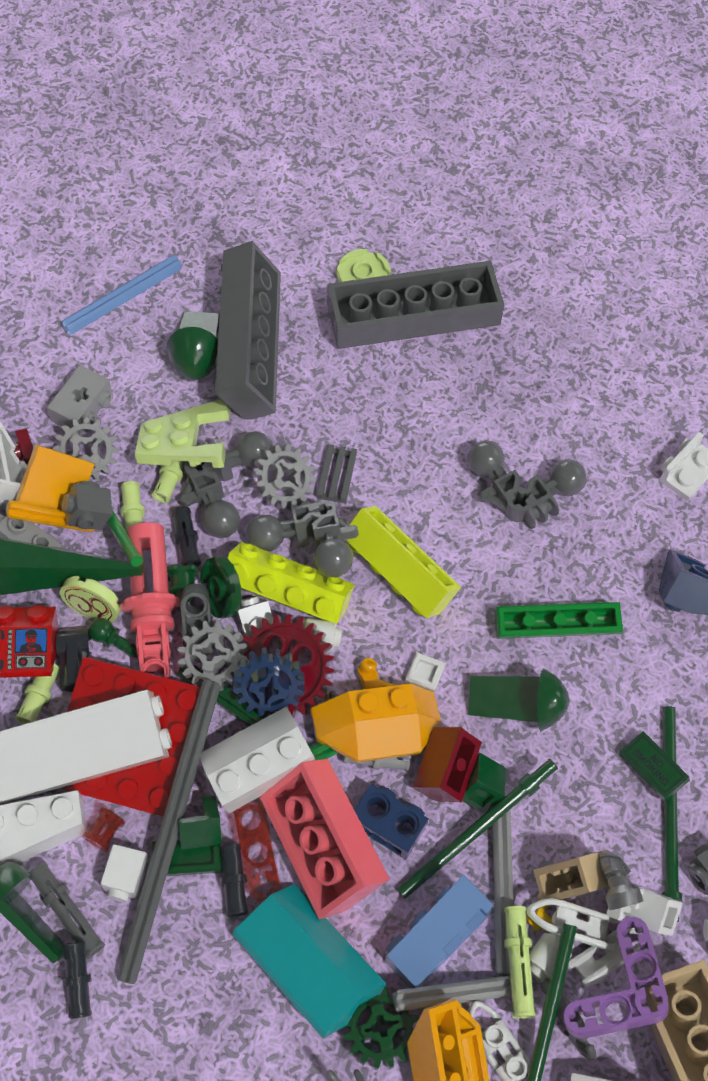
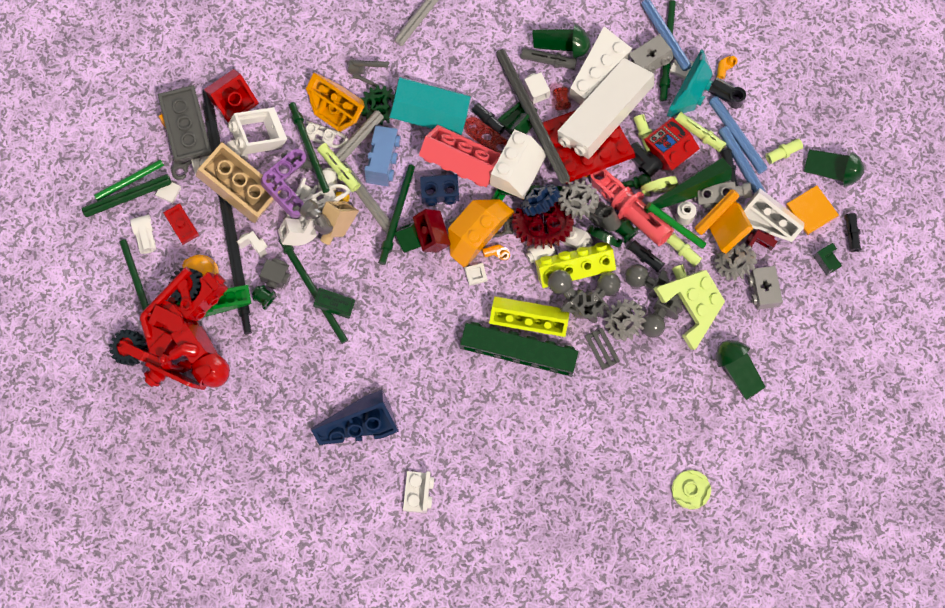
camera: 145 degrees right, 10 degrees up
(77, 979) = (519, 36): black pin -> none
(87, 506) = (704, 227): dark grey brick -> none
(89, 541) = (685, 213): none -> white brick
(121, 295) = (807, 371): medium blue axle -> none
(248, 332) = (714, 387): dark grey brick -> none
(414, 304) = (642, 480): dark grey brick -> none
(445, 537) = (519, 349): none -> dark green brick
(519, 698) = (414, 290): dark green piece -> none
(558, 620) = (428, 345): green brick -> none
(565, 479) = (480, 430): dark grey piece -> none

